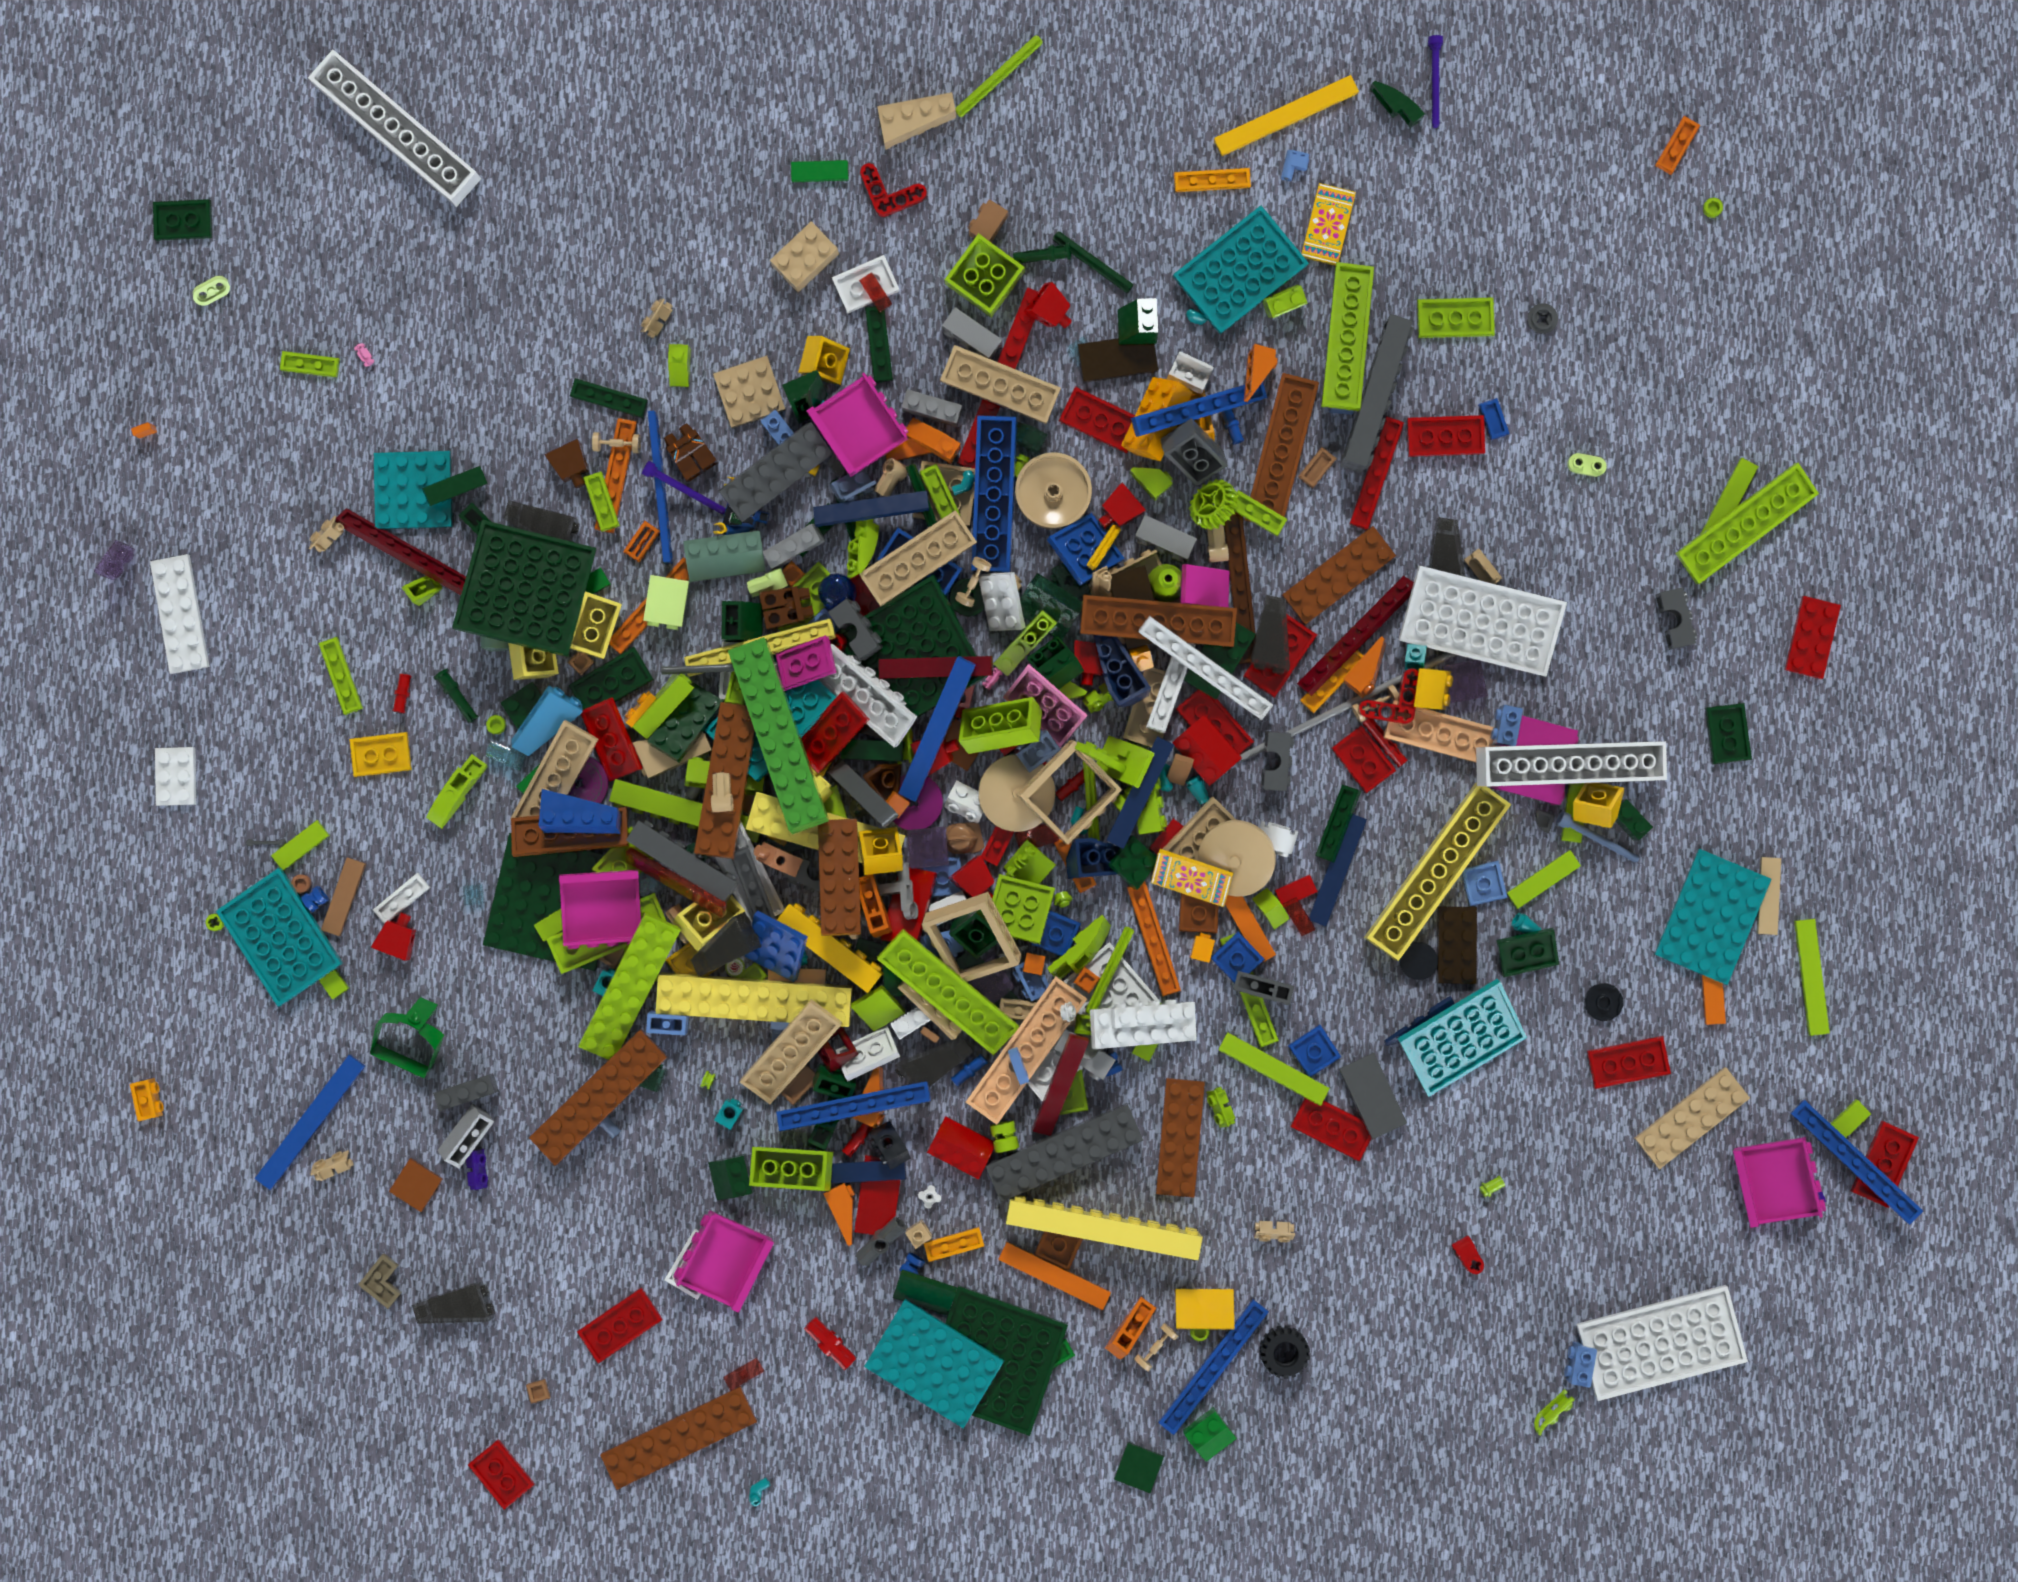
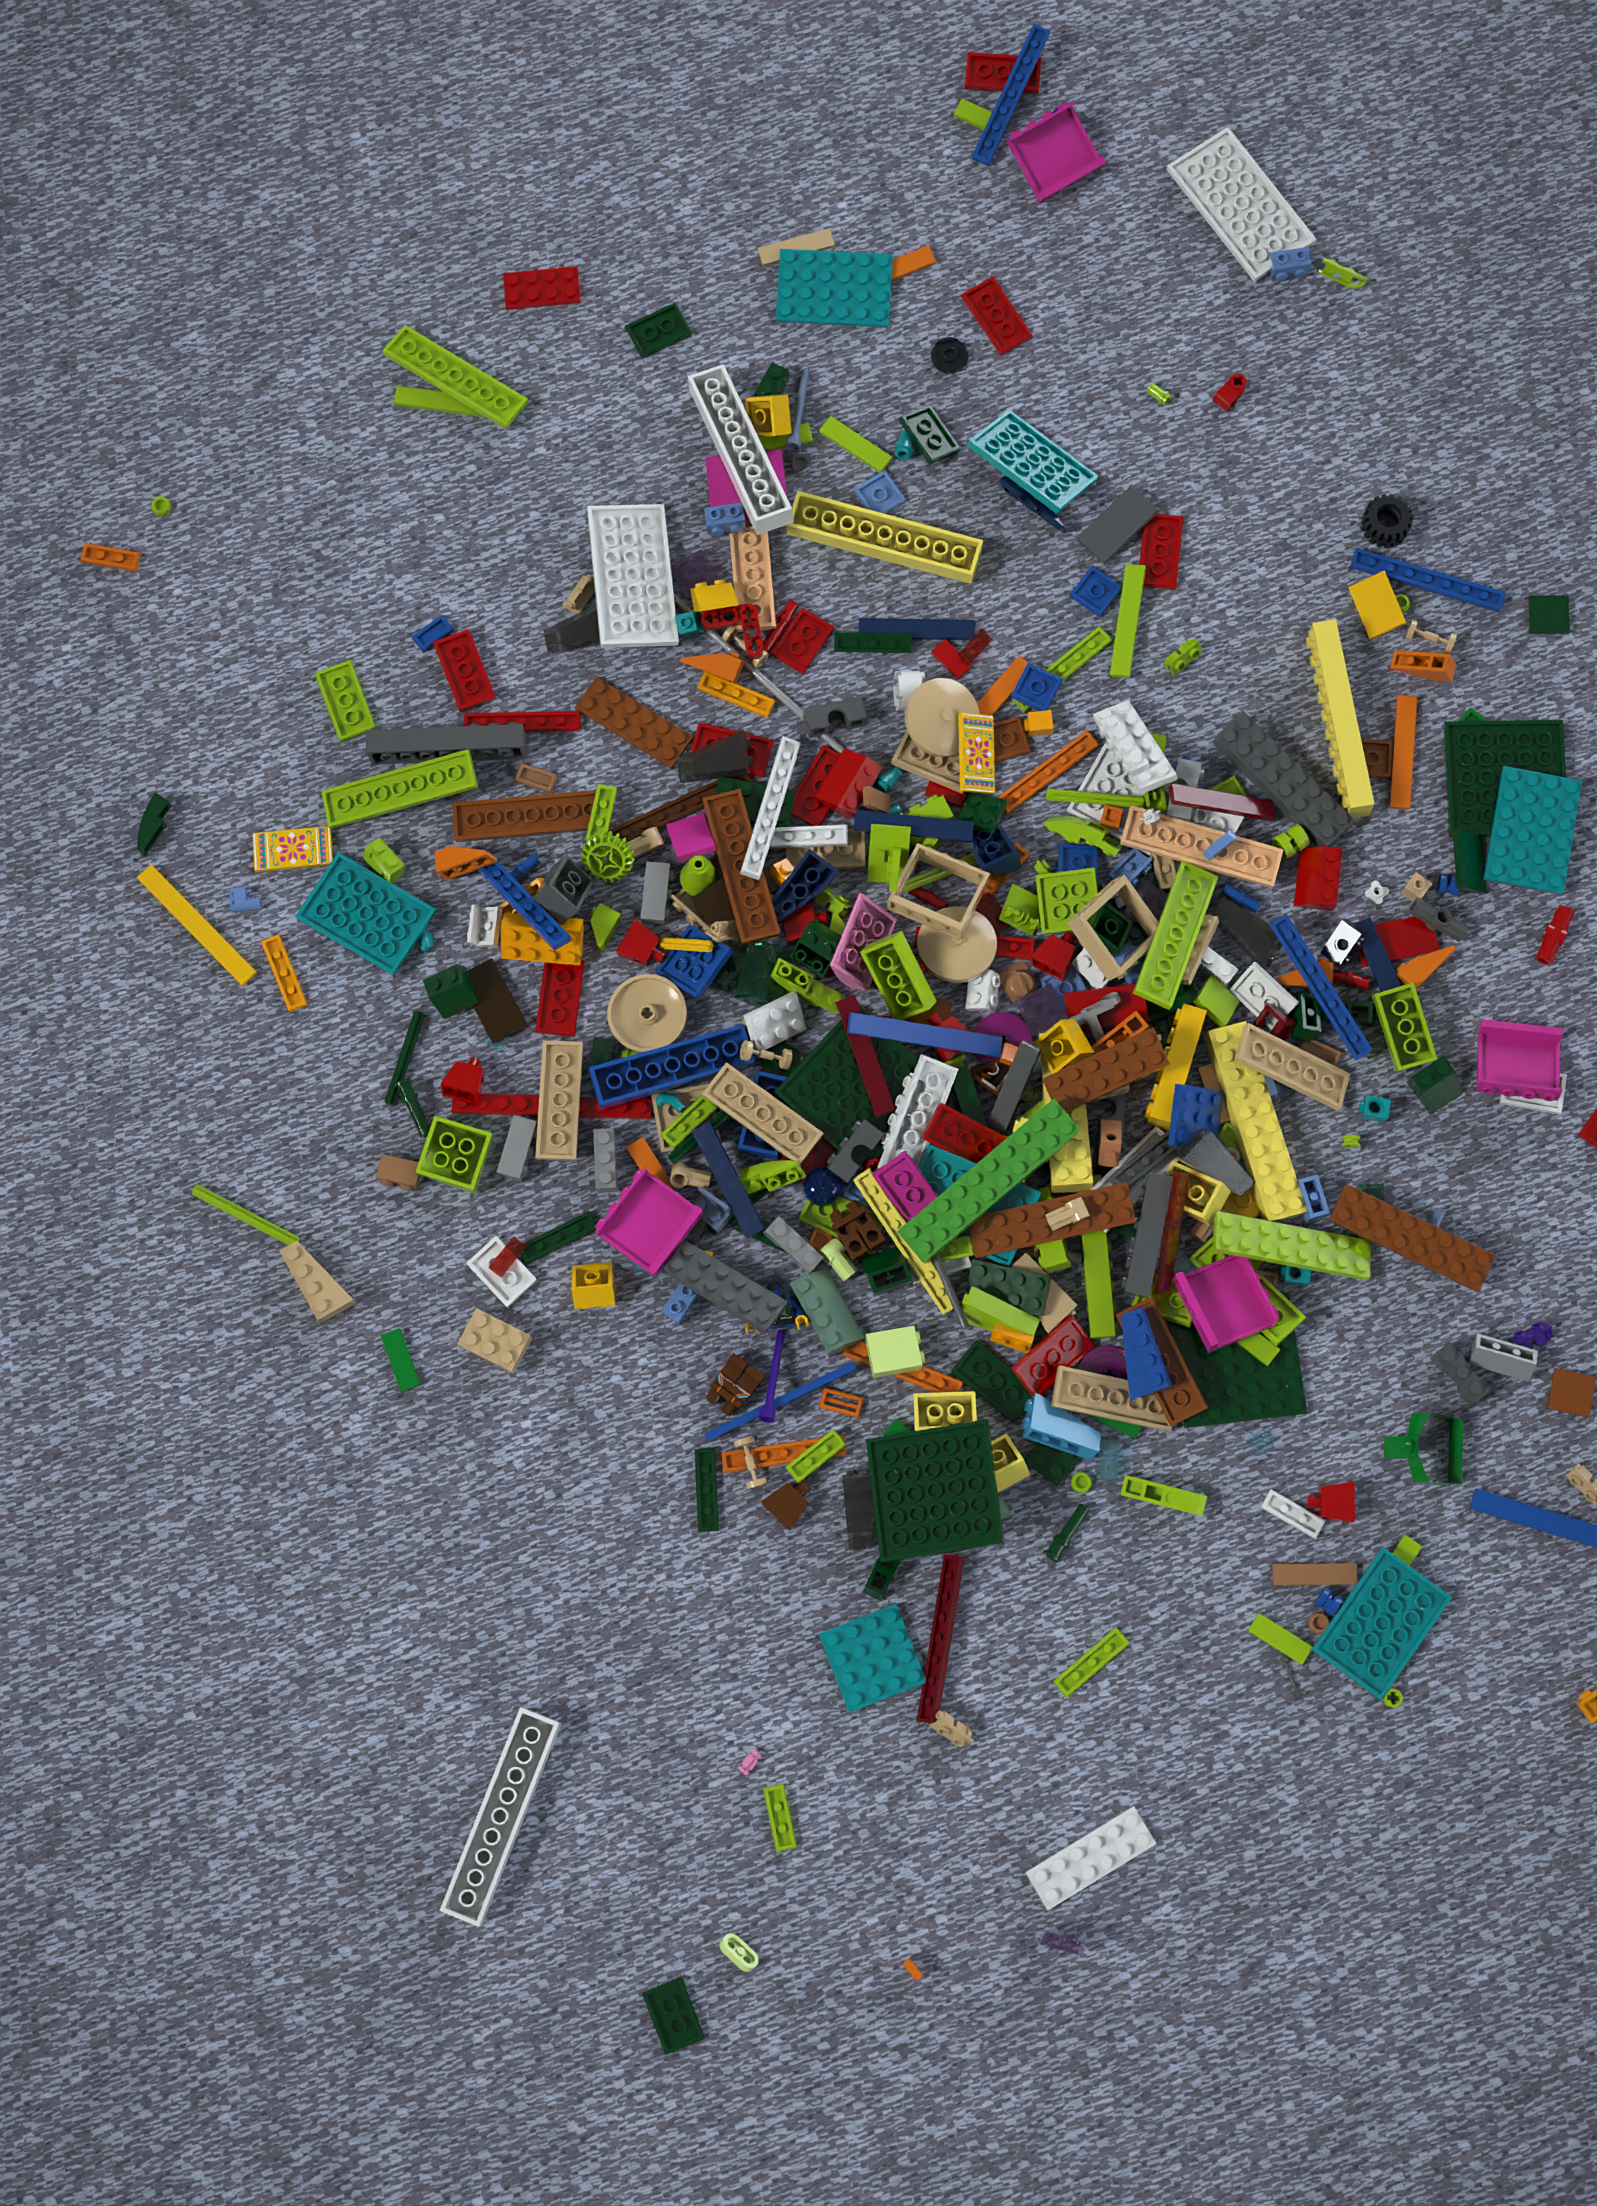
camera: 105 degrees left, 10 degrees down
(175, 776) = (1260, 1797): white plate -> none
(380, 754) = (1156, 1590): yellow tile -> none
(402, 693) = (1085, 1590): red pin -> none
(421, 590) = (971, 1607): lime slope -> none
(454, 486) = (853, 1611): dark green slope -> none
(581, 662) = (991, 1416): medium nougat tile -> none
(651, 323) = (598, 1470): tan hinge -> none
(679, 365) = (648, 1428): lime slope -> none
(749, 391) = (650, 1349): tan plate -> none
(805, 393) = (637, 1287): dark green slope -> none
(884, 198) = (405, 1286): red beam -> none
(930, 1034) = (1221, 946): medium nougat tile -> none
(933, 440) = (637, 1146): orange slope -> none
(954, 1244) = (1412, 852): light orange plate -> none
(1034, 964) = (1114, 869): orange tile -> none
(1038, 752) = (915, 935): sand blue bracket -> none
(1077, 814) = (959, 883): teal arm -> none
(1180, 1137) = (1226, 683): dark orange plate -> none
(1209, 1434) = (1490, 563): green slope -> none
(1263, 988) = (1055, 651): dark grey slope -> none
(1271, 908) = (977, 674): lime slope -> none
(1282, 1231) = (1283, 575): tan hinge -> none
(1356, 636) = (686, 685): dark red plate -> none
(1419, 961) = (976, 525): black tile -> none
(1435, 43) = (80, 808): dark purple piece -> none
(1457, 945) = (947, 499): dark brown plate -> none
(1551, 320) = (319, 613): dark grey gear -> none
(1587, 465) = (447, 535): yellowish green plate -> none
(1676, 602) = (578, 398): dark grey arch -> none
(1692, 1118) = (1026, 245): tan plate -> none
(1811, 977) = (856, 187): lime tile -> none

